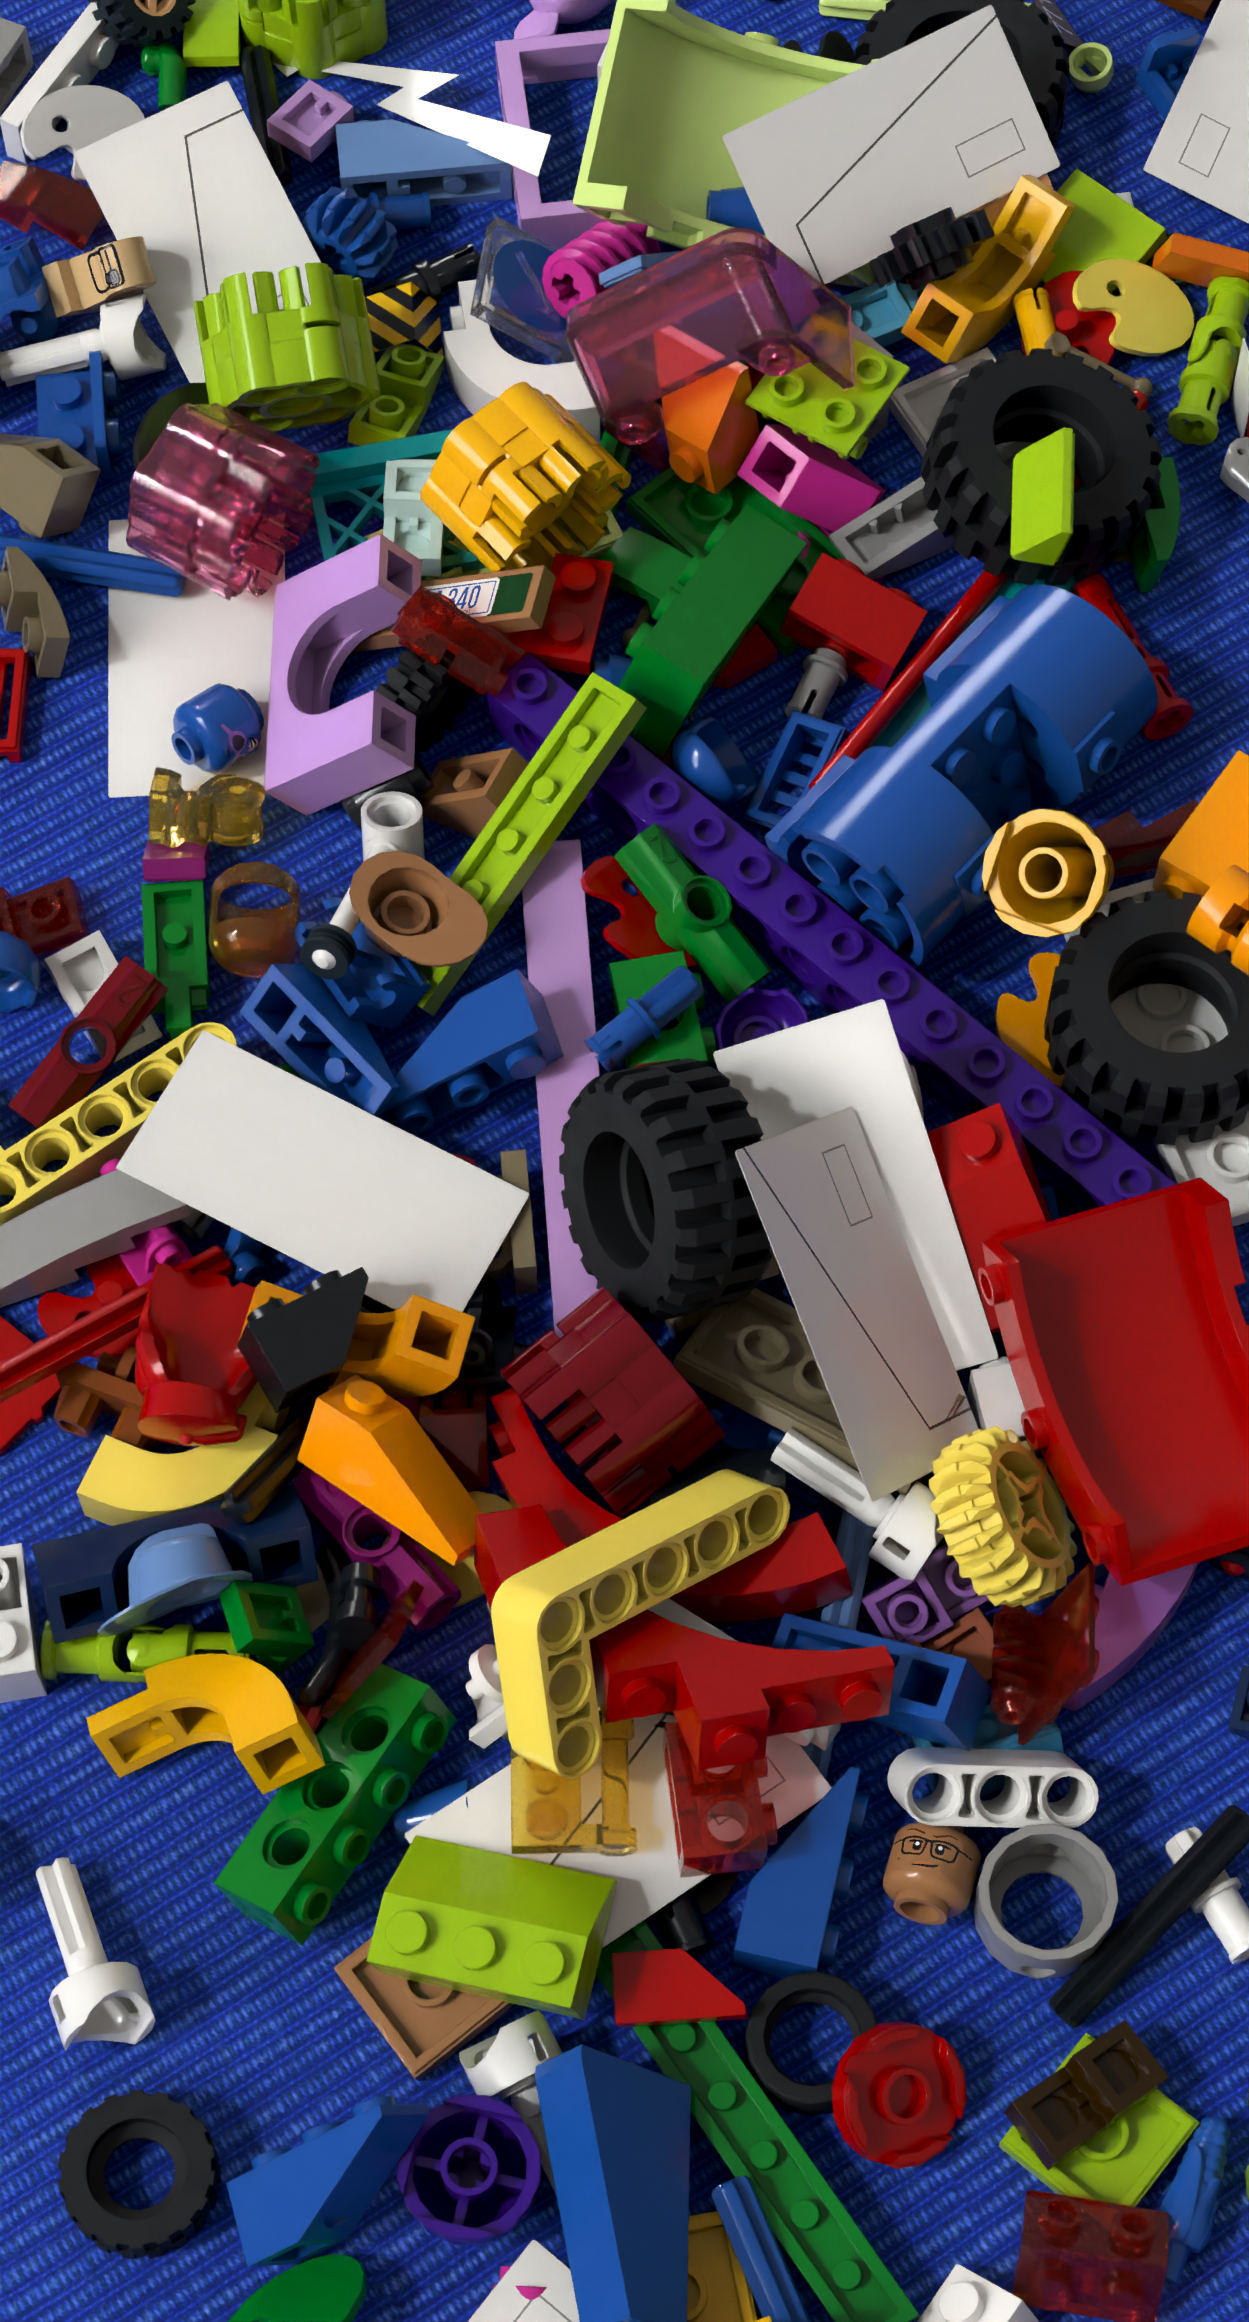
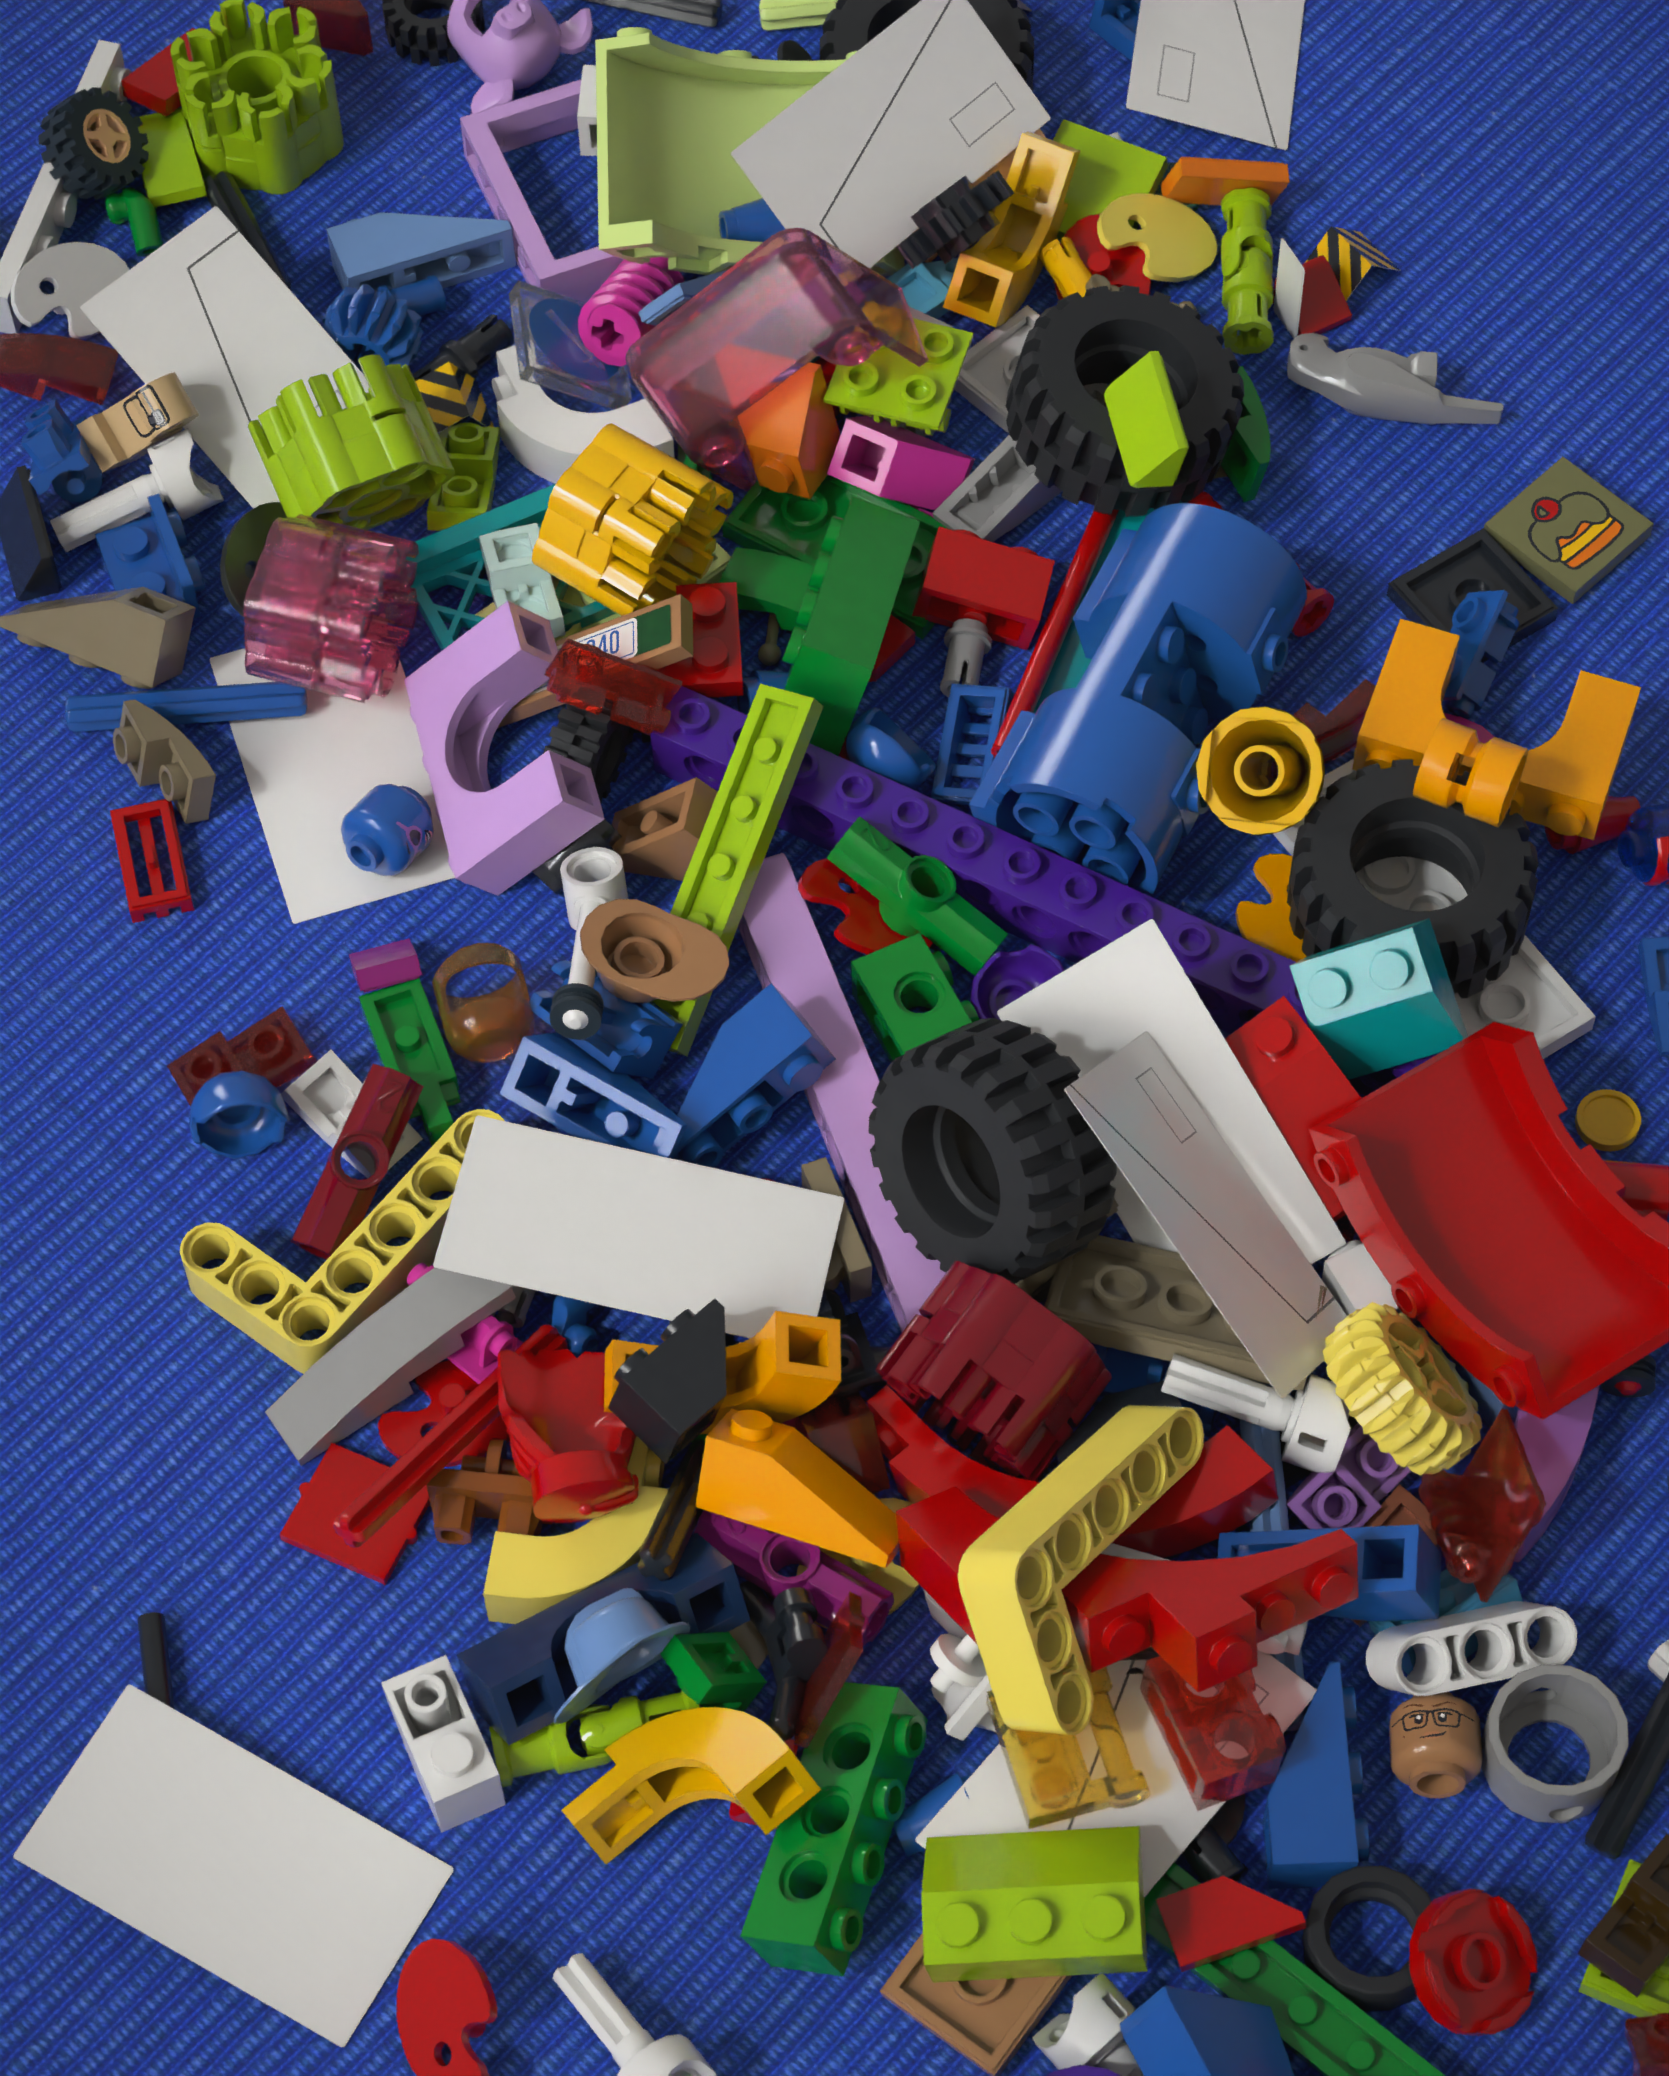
camera: 15 degrees left, 5 degrees down
(220, 811) = (417, 907): clear yellow leg -> none
(309, 120) = (298, 231): lavender bracket -> none
(501, 140) = (497, 209): white sticker -> none
(644, 1017) = (905, 1003): blue axle -> none
(1094, 1128) = (1380, 1000): none -> teal slope
(1098, 61) = (1050, 19): yellowish green hinge -> none

